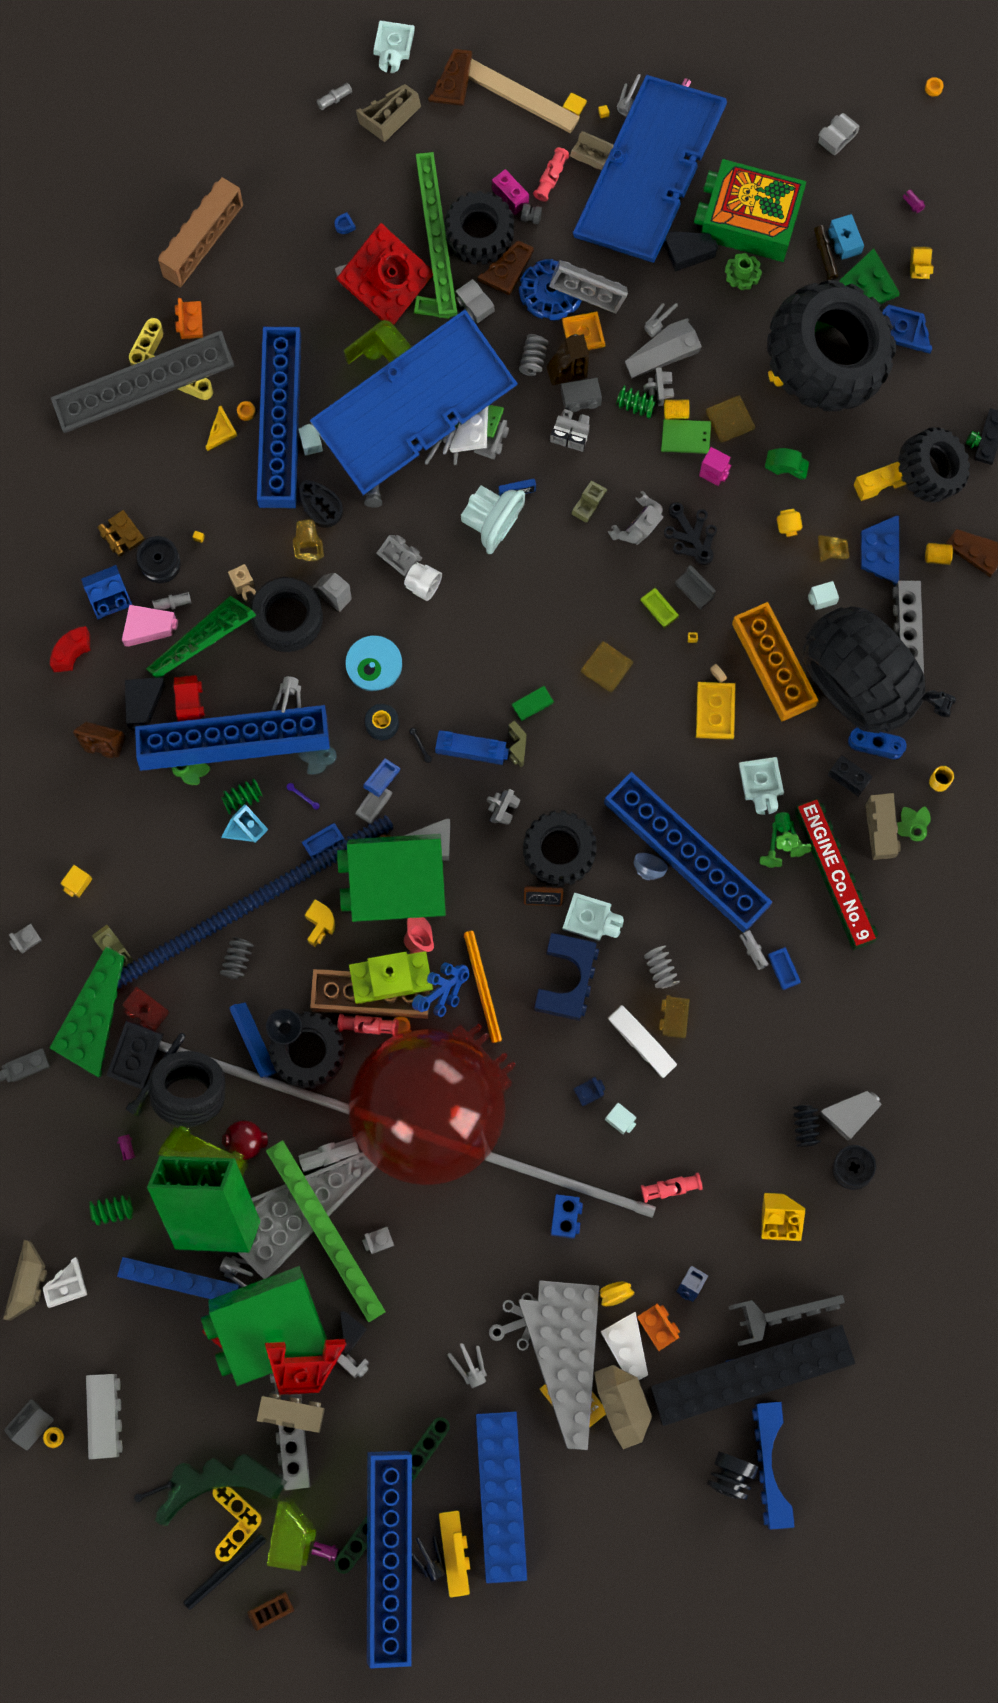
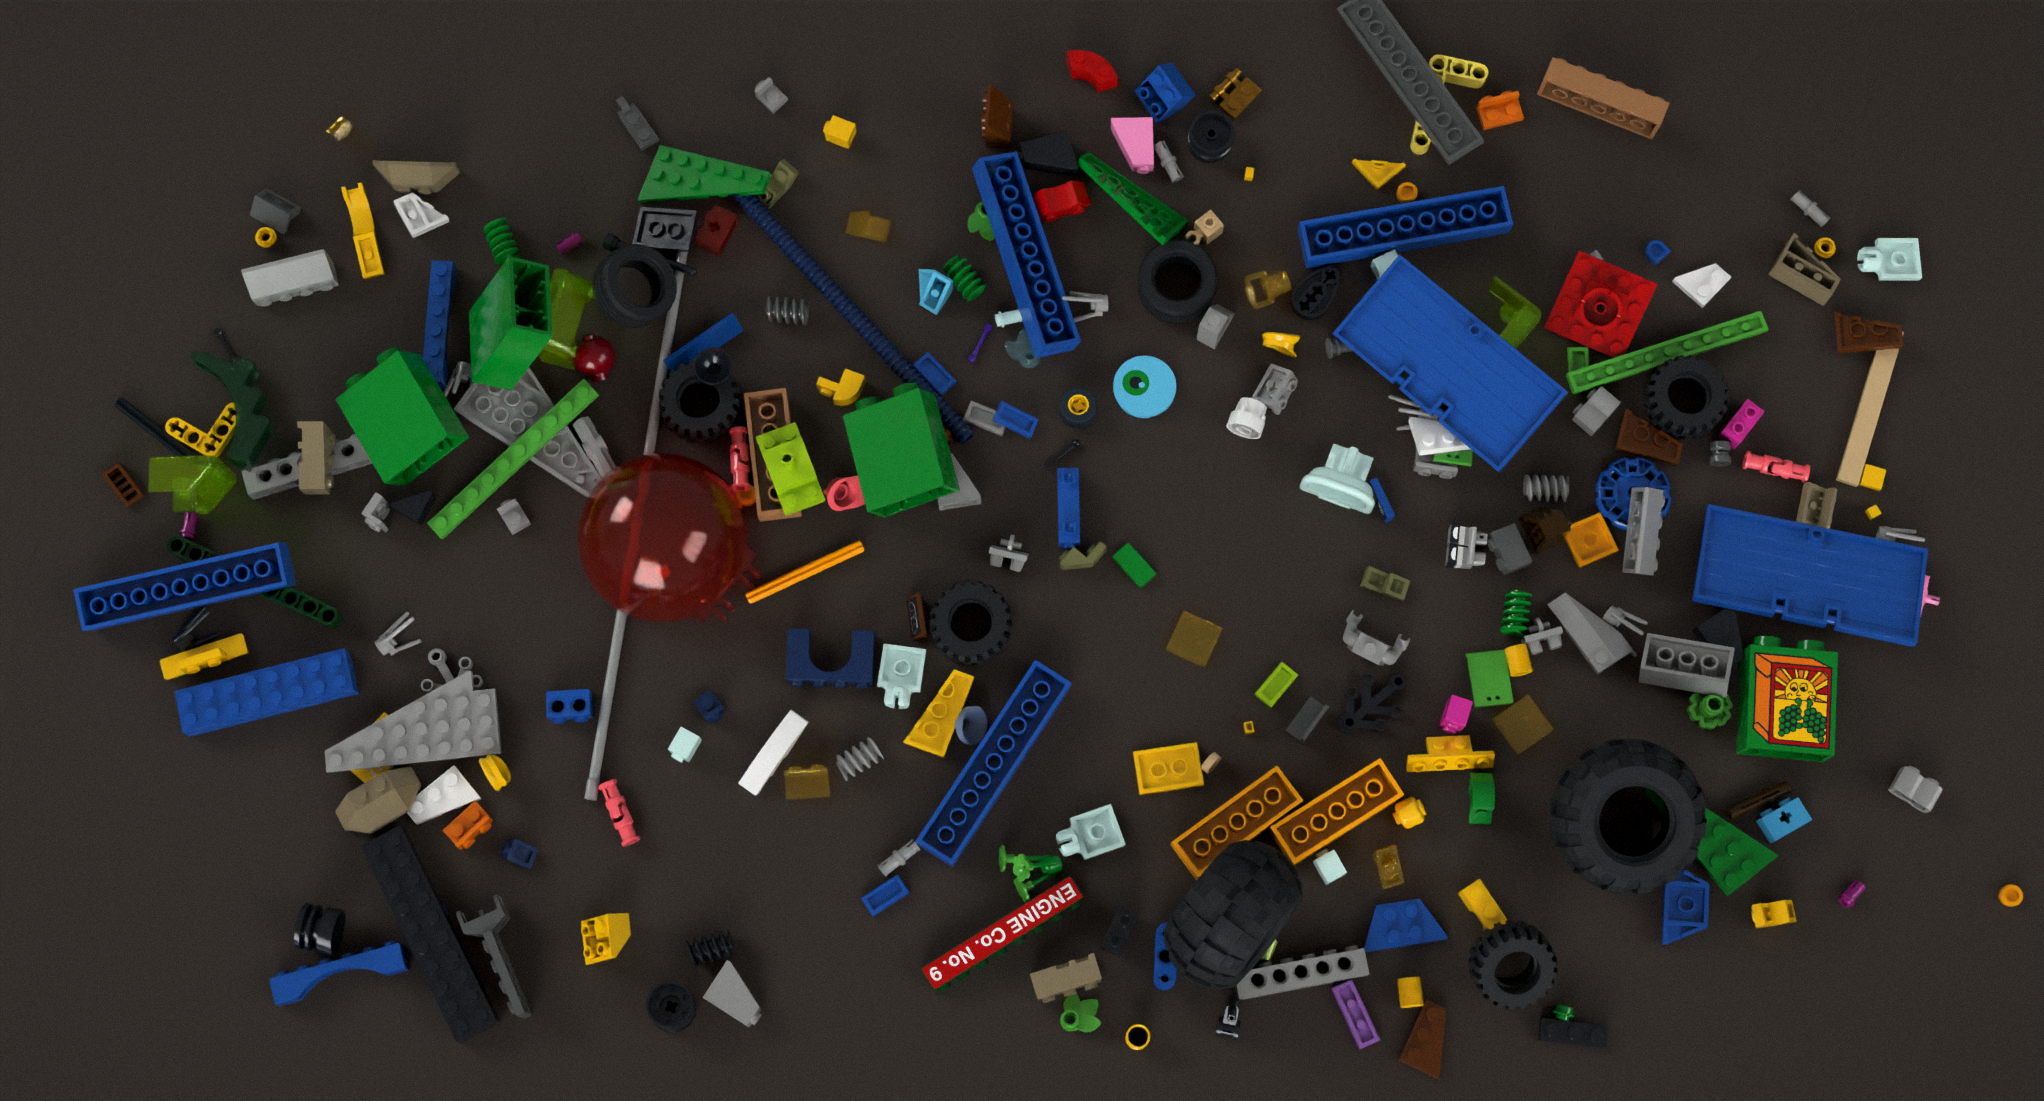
camera: 80 degrees right, 0 degrees up
(70, 1340) = (363, 231): none -> yellow piece
(171, 874) = (867, 226): none -> clear yellow slope
(285, 766) = (1008, 318): none -> light aqua pin
(303, 1374) = (357, 460): red wing -> none
(360, 539) = (1281, 342): none -> yellow piece
(370, 89) = (1827, 242): none -> yellow plate
(380, 194) = (1702, 283): none -> white wing
(459, 975) = (811, 544): blue plant -> none
(637, 892) = (936, 726): none -> yellow wing
(707, 278) = (1686, 665): none -> light grey slope
(744, 481) = (1449, 754): none -> yellow bracket
(780, 578) = (1336, 812): none -> light orange brick
(949, 601) = (1355, 1014): none -> medium lavender tile

